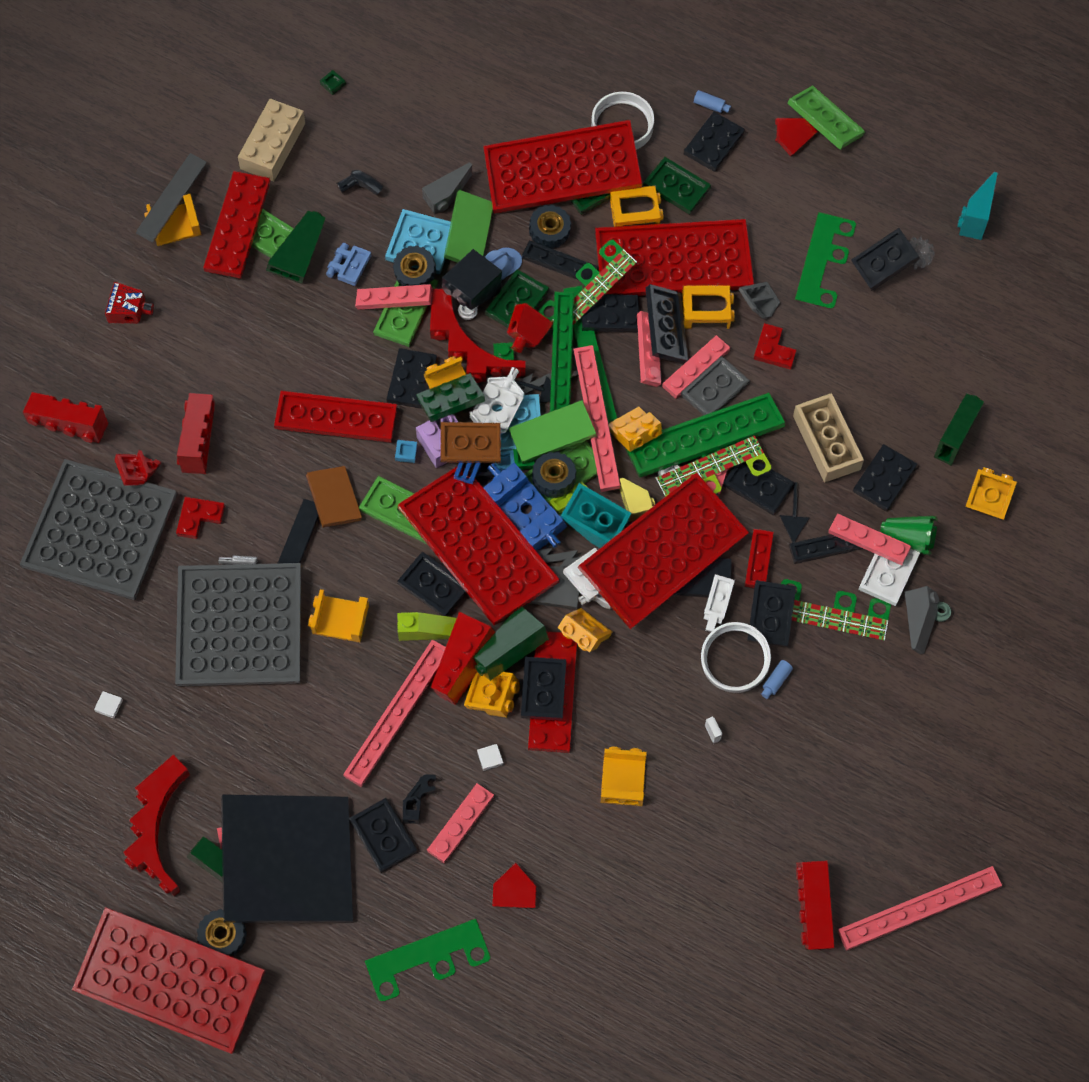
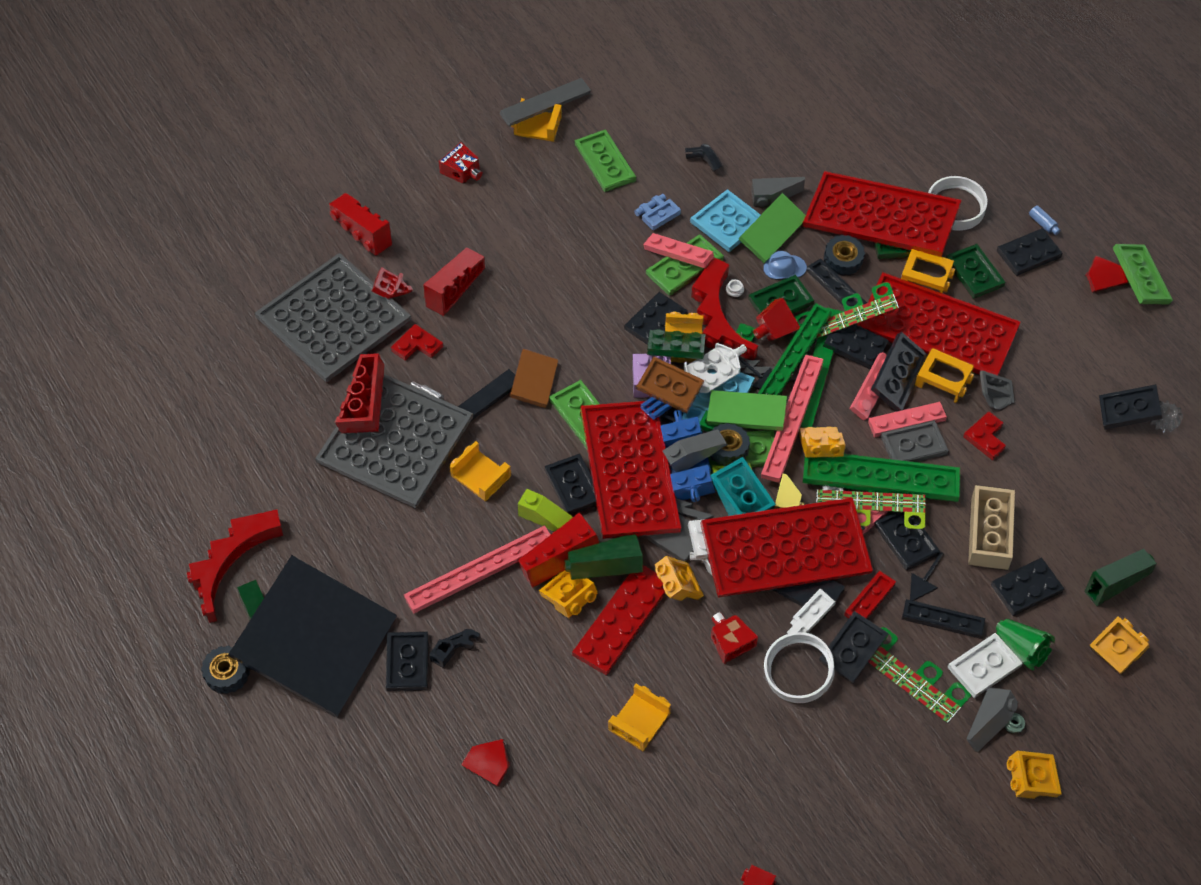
camera: 30 degrees right, 10 degrees down
(108, 704) = (254, 450): white tile -> none
(169, 980) = (160, 683): red plate -> none
(190, 604) = (363, 401): none -> red wedge
(237, 224) = (585, 144): red plate -> none
(271, 139) = (652, 95): tan brick -> none
(296, 251) = (621, 181): dark green slope -> none
(332, 82) = (729, 75): dark green tile -> none
(335, 416) = (575, 319): red plate -> none
(406, 451) = (615, 371): dark azure plate -> none
(414, 256) = (710, 226): black wheel -> none
(429, 949) = (386, 773): green piece -> none
(460, 823) = (477, 684): coral plate -> none
(473, 280) = (750, 264): black slope -> none
(490, 757) = (535, 644): white tile -> none
(529, 497) = (693, 450): none -> dark grey slope
(543, 688) = (613, 608): black plate -> none
(660, 659) = (731, 637): none -> red torso
(713, 730) = (743, 718): white tile -> none
(776, 679) = (827, 705): medium blue cylinder -> none
(818, 254) = (1075, 377): green piece -> none
(869, 539) = (981, 629): coral plate -> none
(982, 651) = (1033, 774): none -> light orange plate

